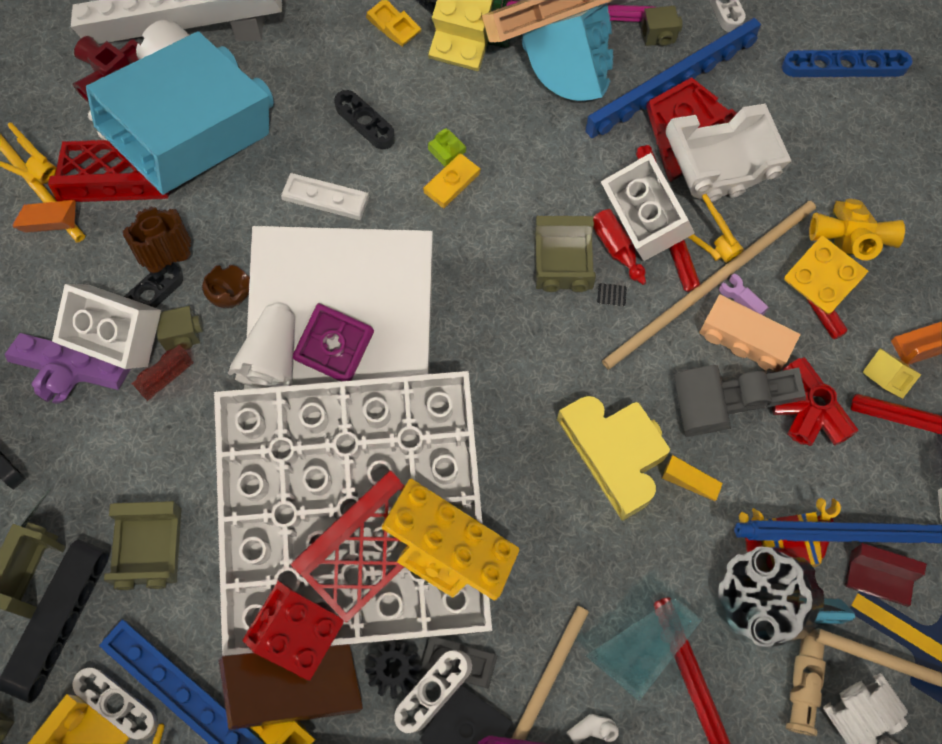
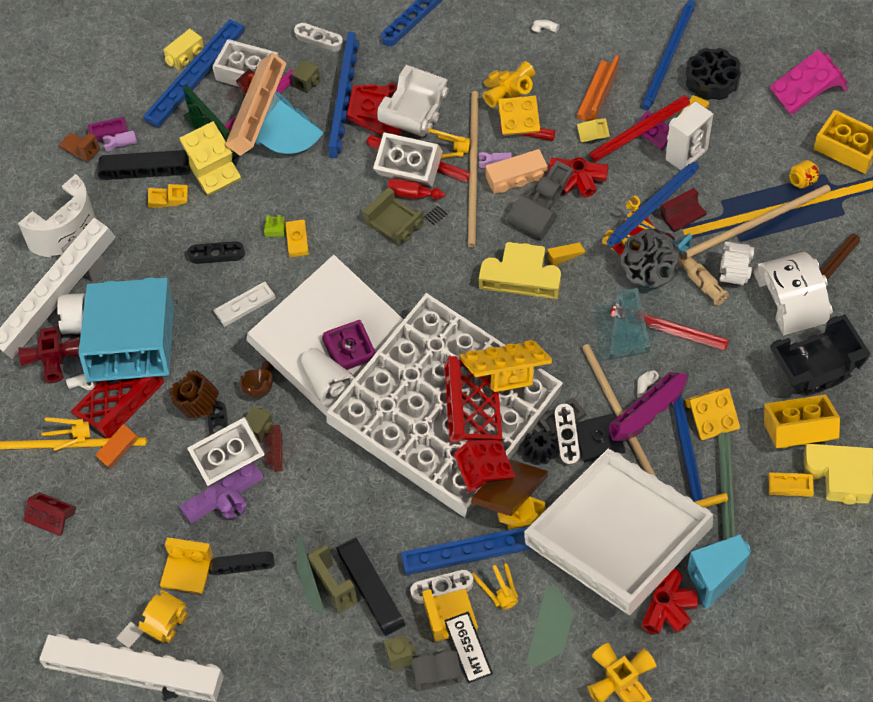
camera: 45 degrees left, 10 degrees down
(144, 544) = (367, 519): olive panel -> none

